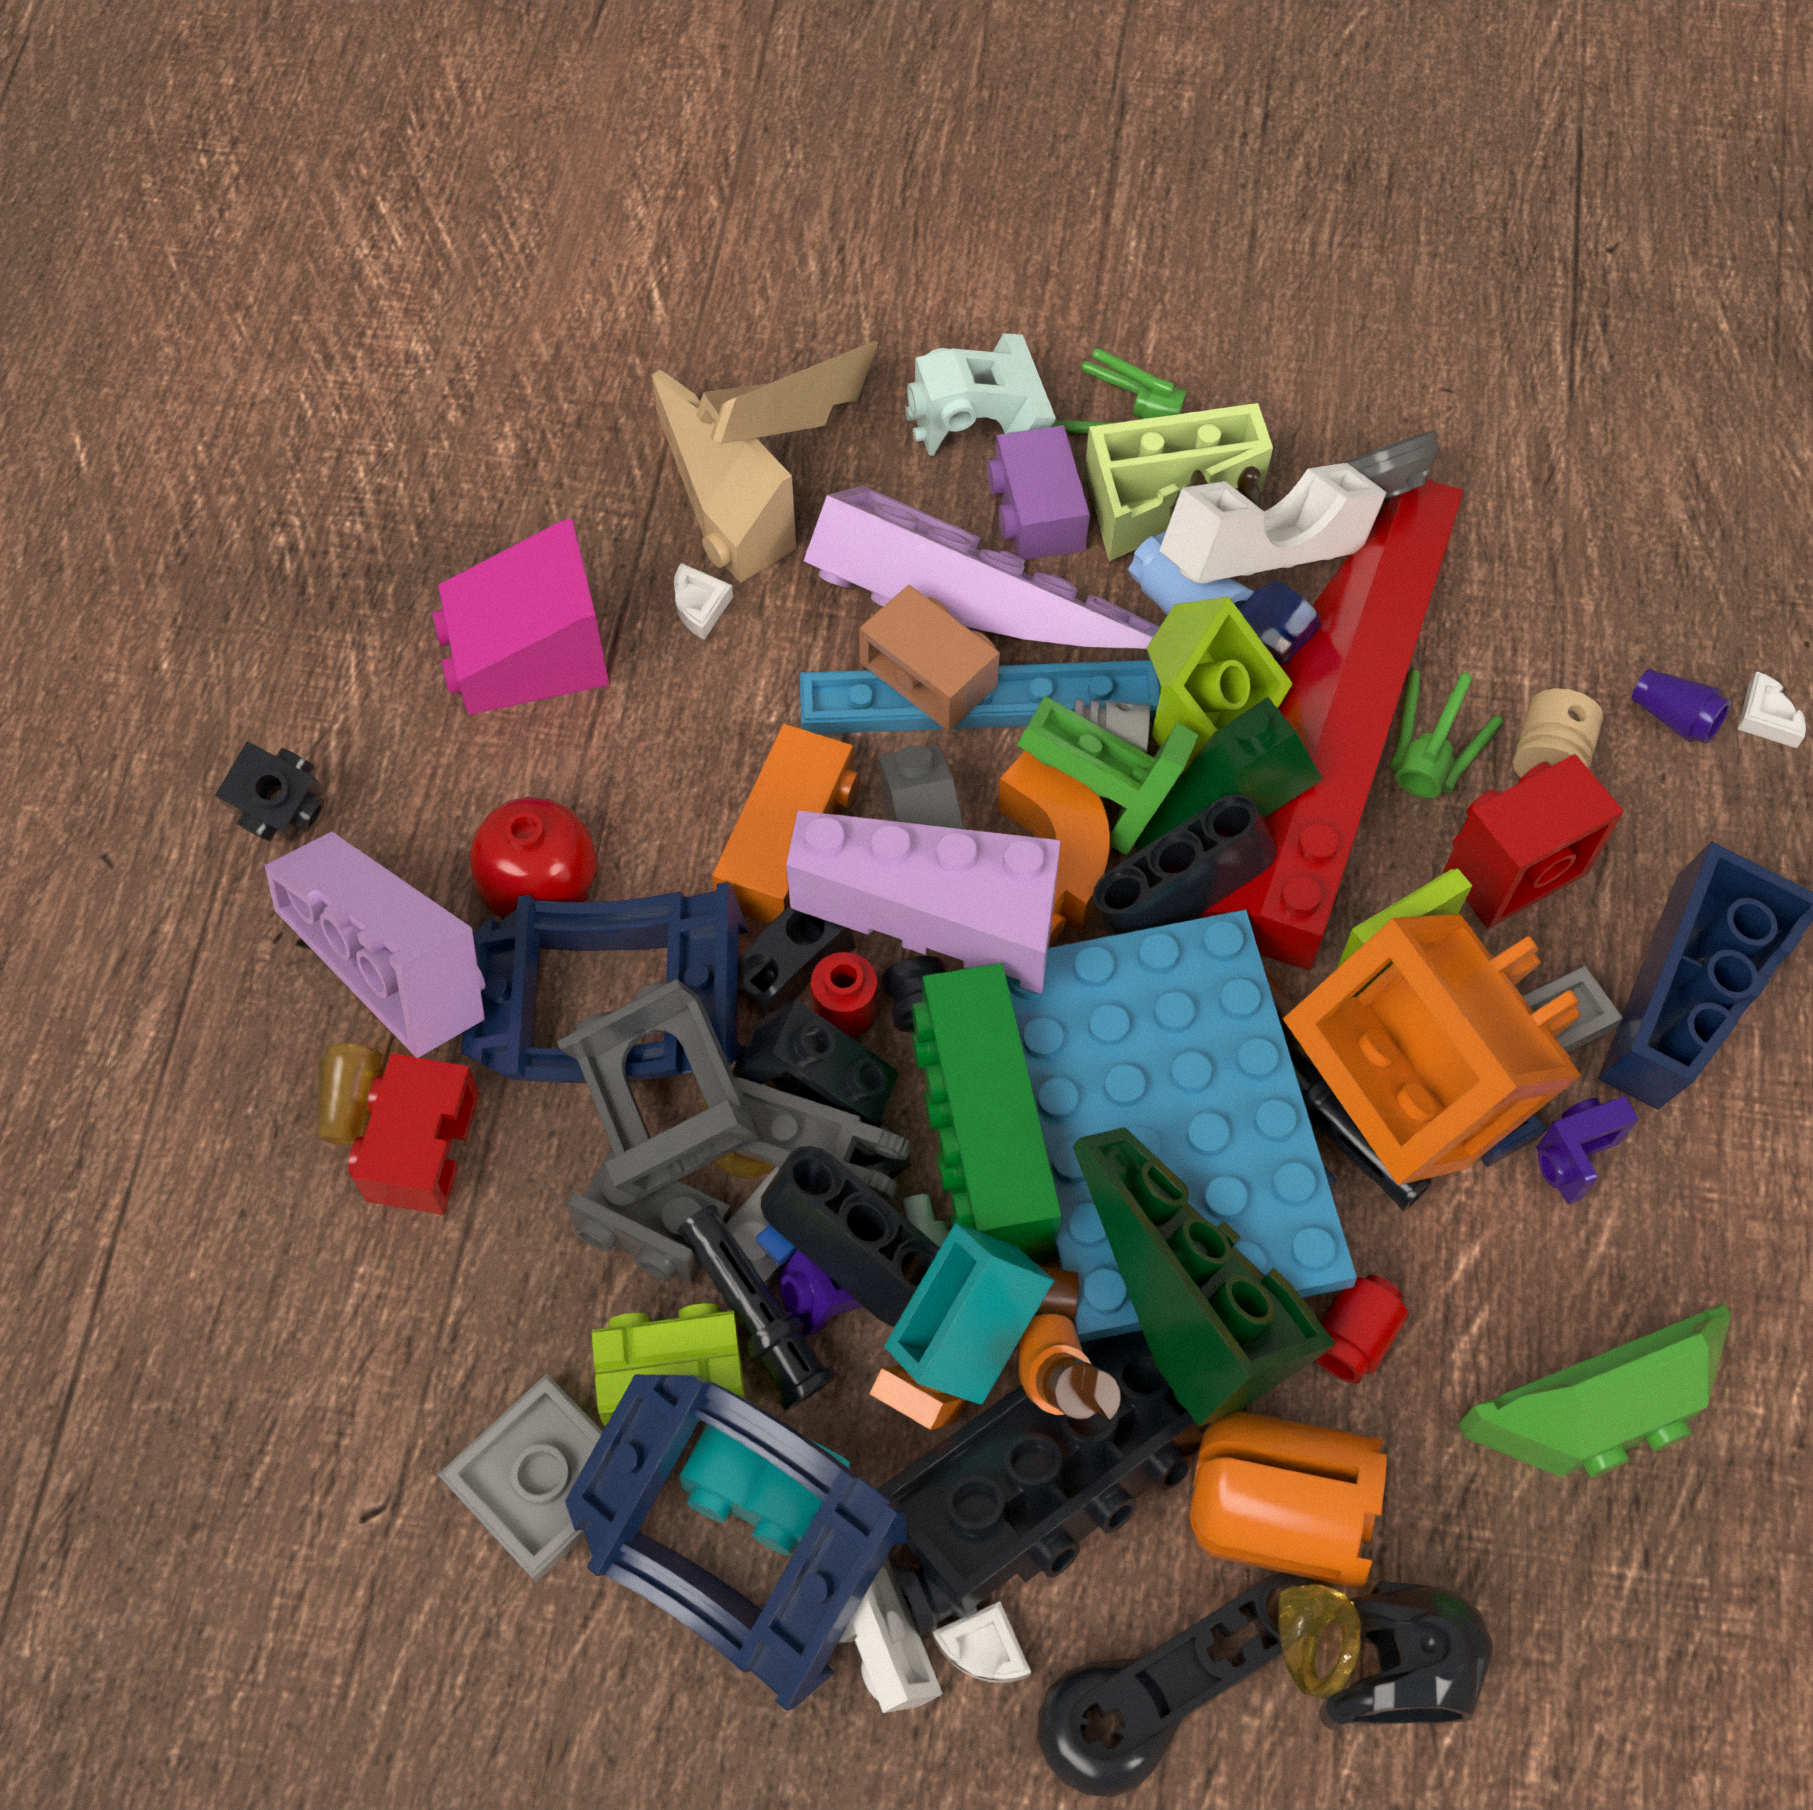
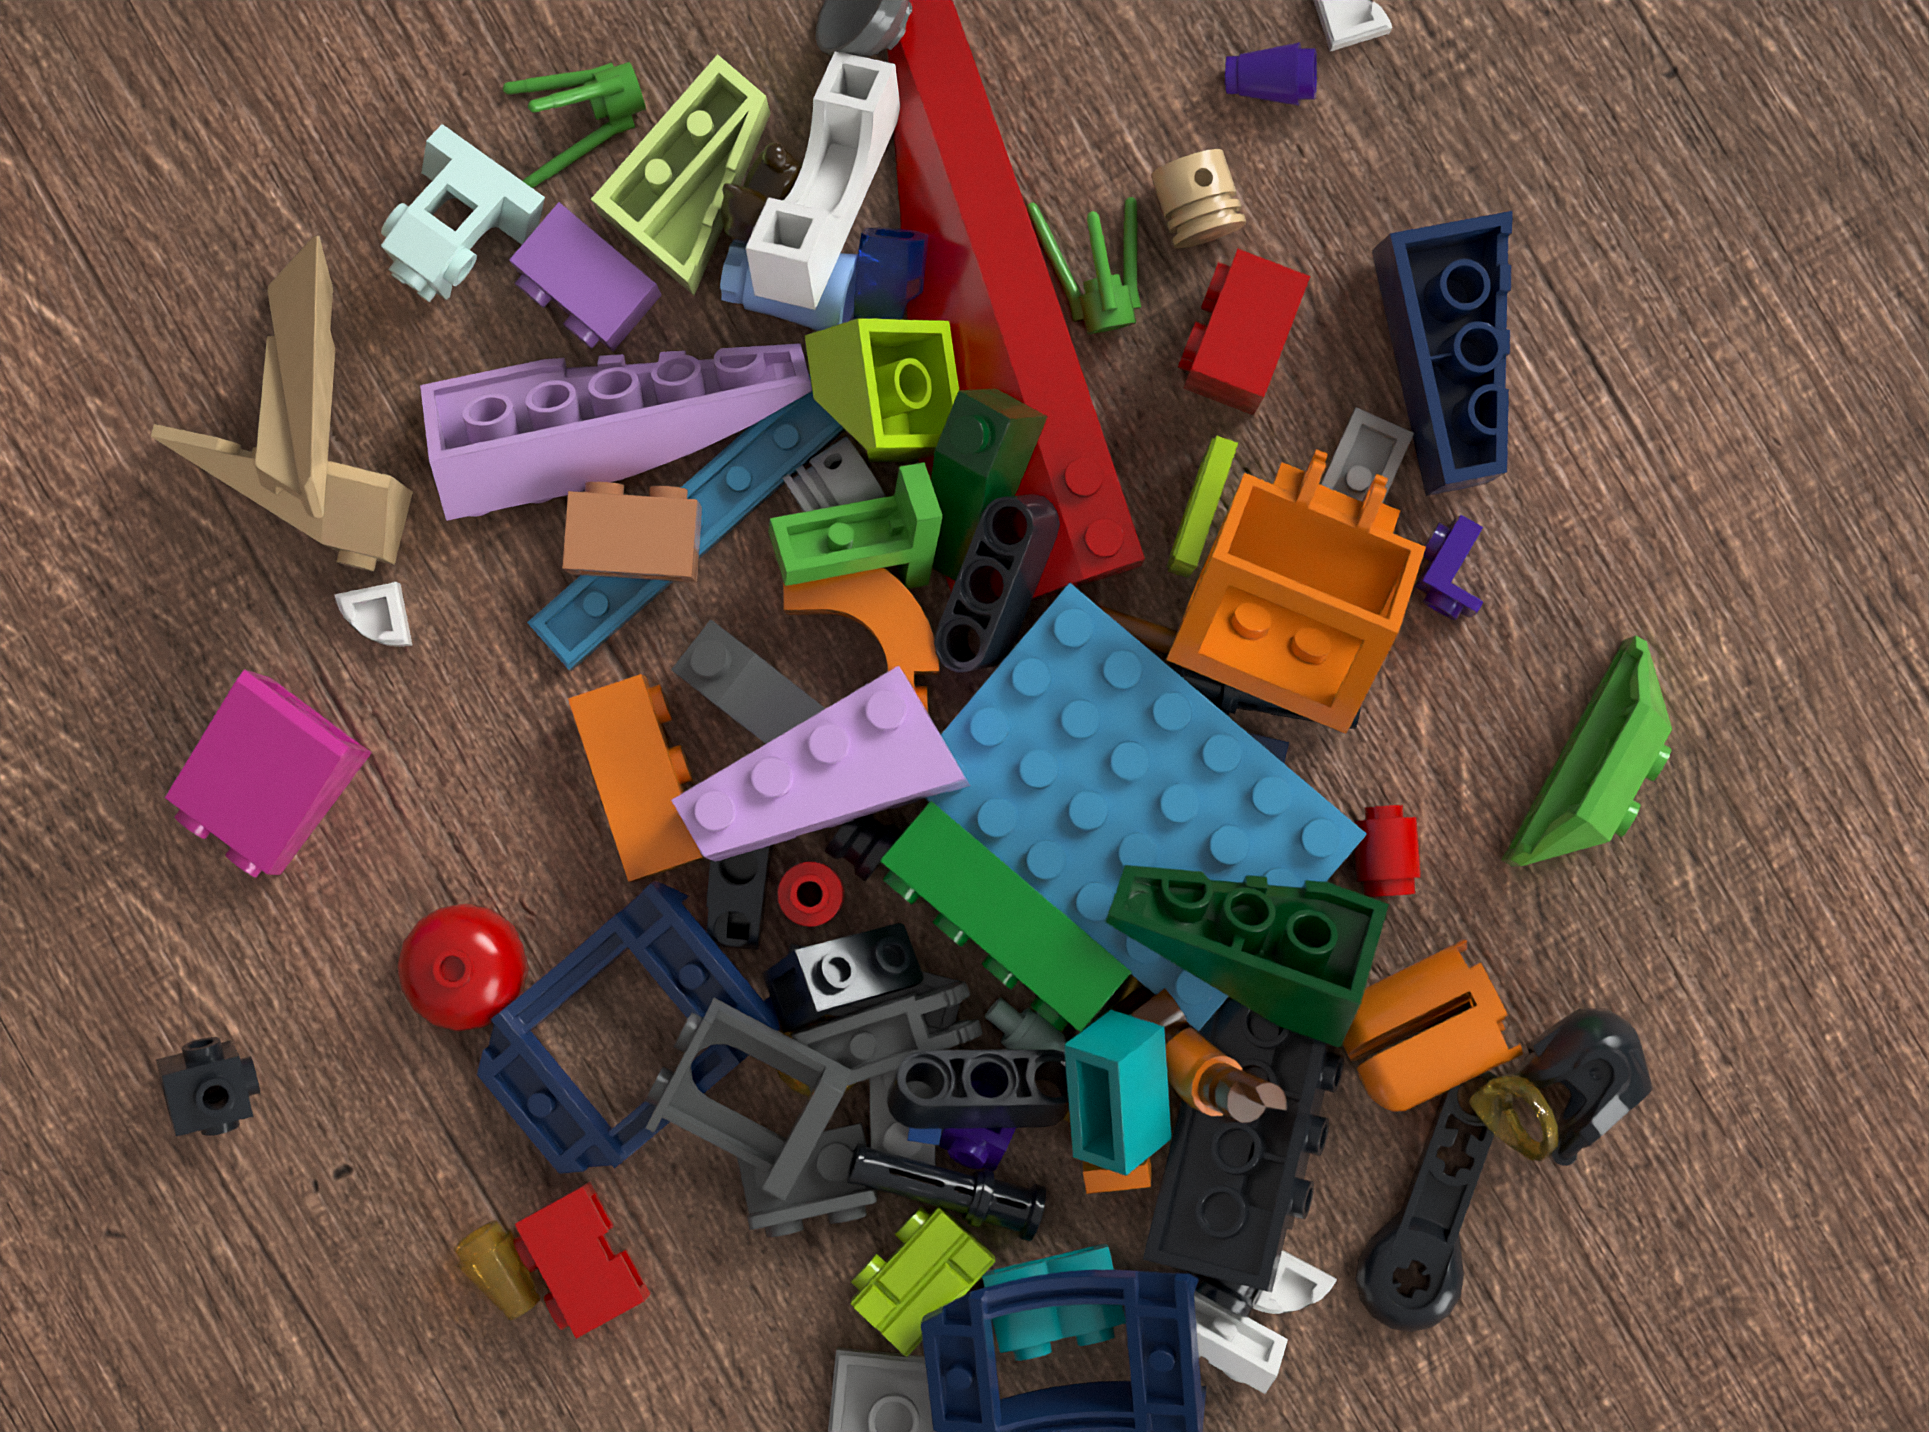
camera: 35 degrees left, 25 degrees up
(382, 940) = (416, 1144): lavender wedge -> none

